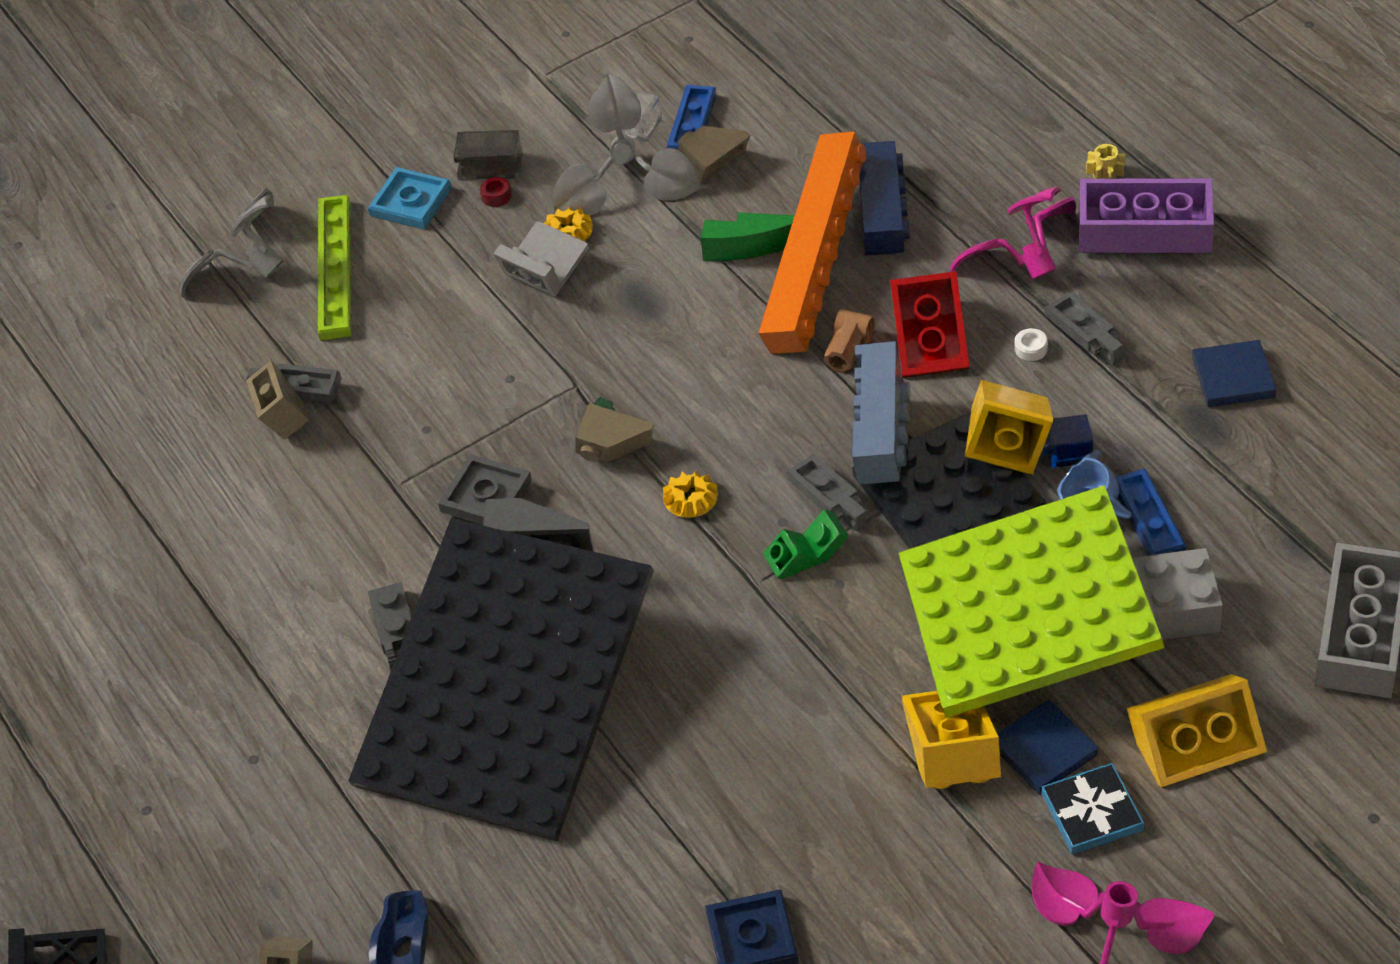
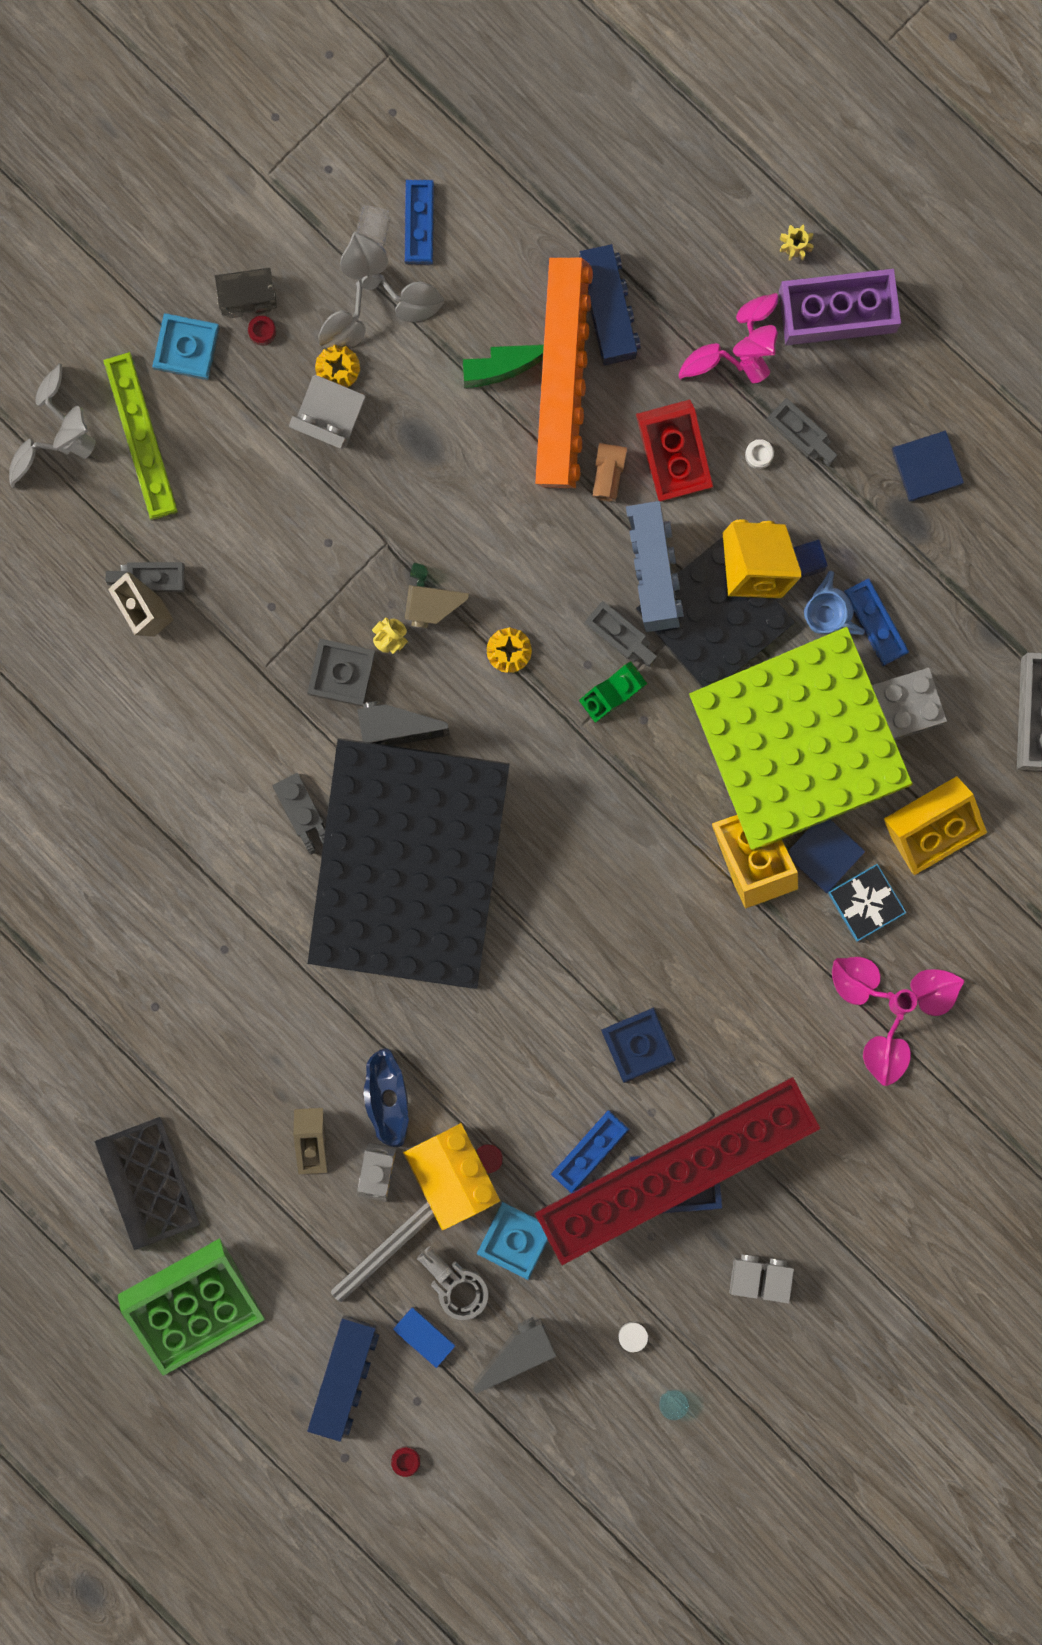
camera: 20 degrees left, 35 degrees up
(551, 459) = (389, 635): none -> light yellow gear
(712, 148) = (447, 268): dark tan slope -> none

